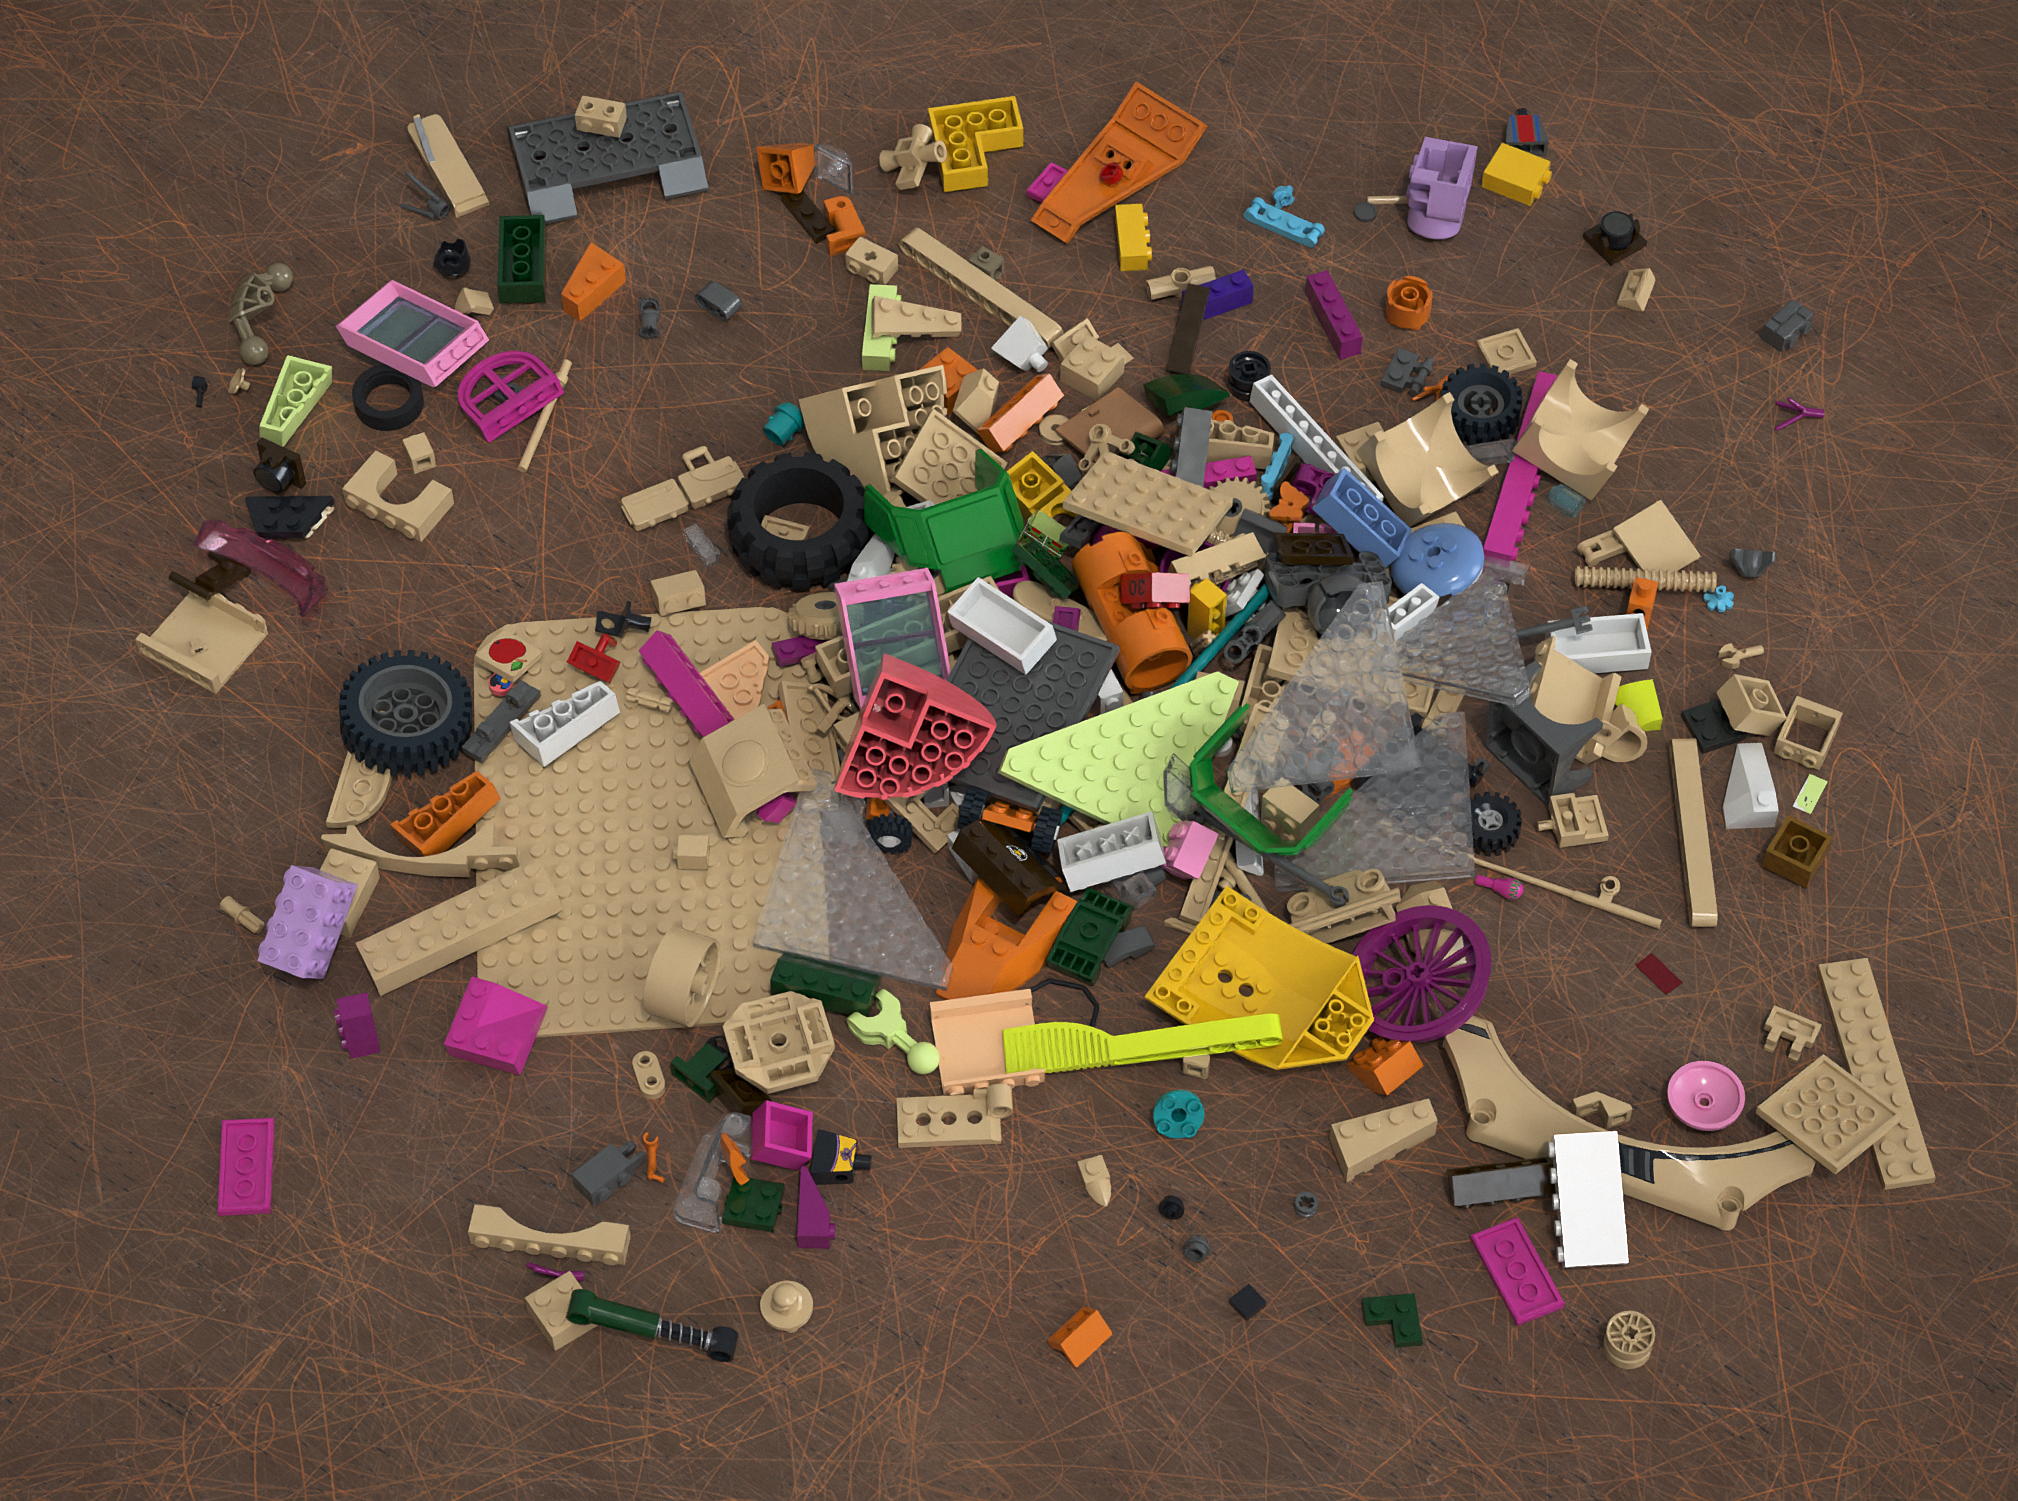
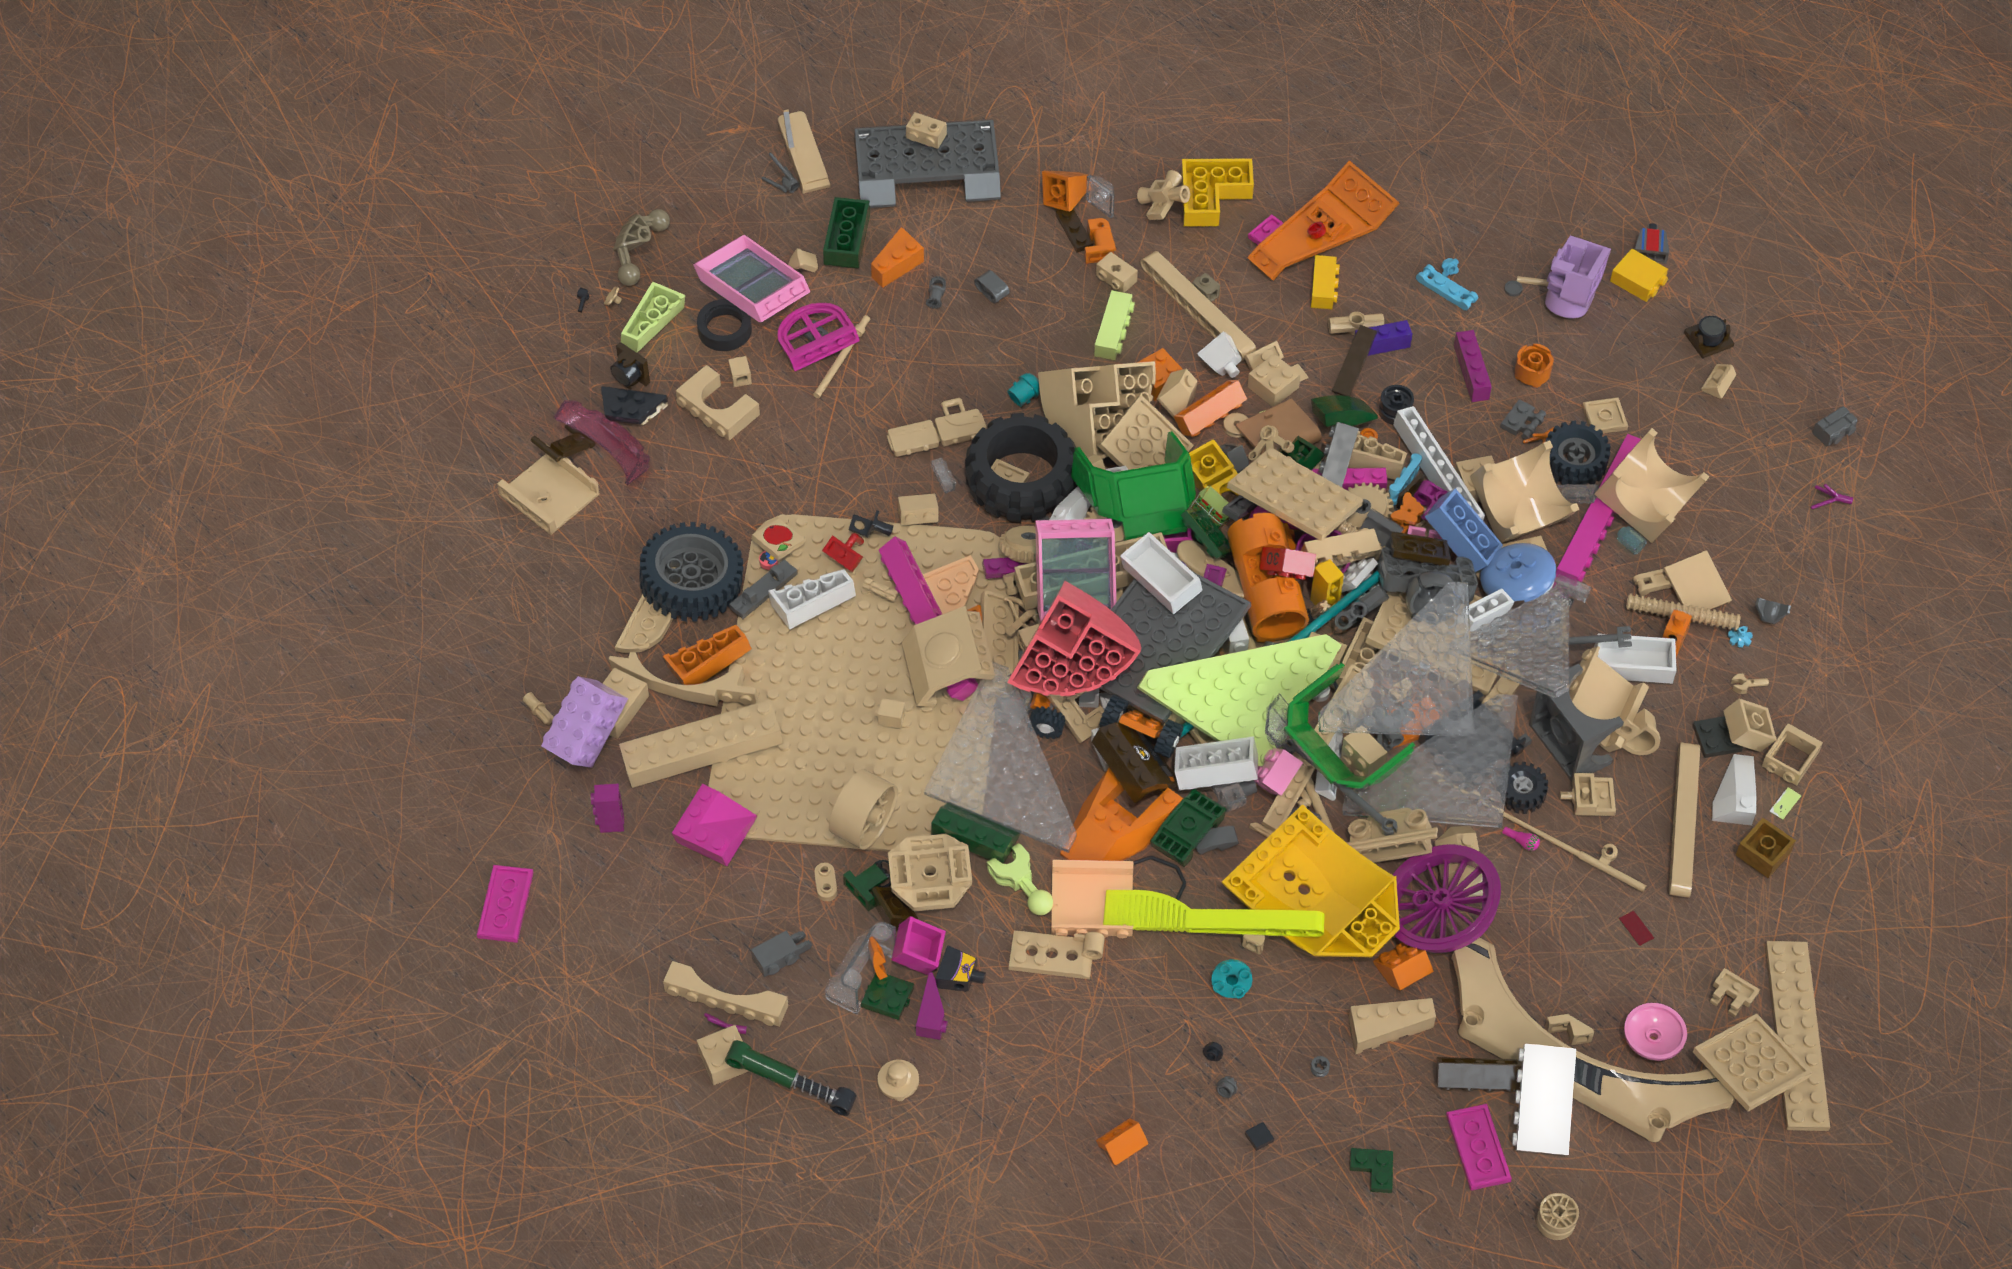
camera: 10 degrees right, 0 degrees up
(452, 258) = (793, 224): black hair -> none
(651, 1147) = (817, 938): orange piece -> none
(905, 318) = (1132, 320): tan wing -> none
(1096, 1179) = (1158, 1019): tan plate -> none
(1643, 700) = (1663, 709): neon yellow slope -> none

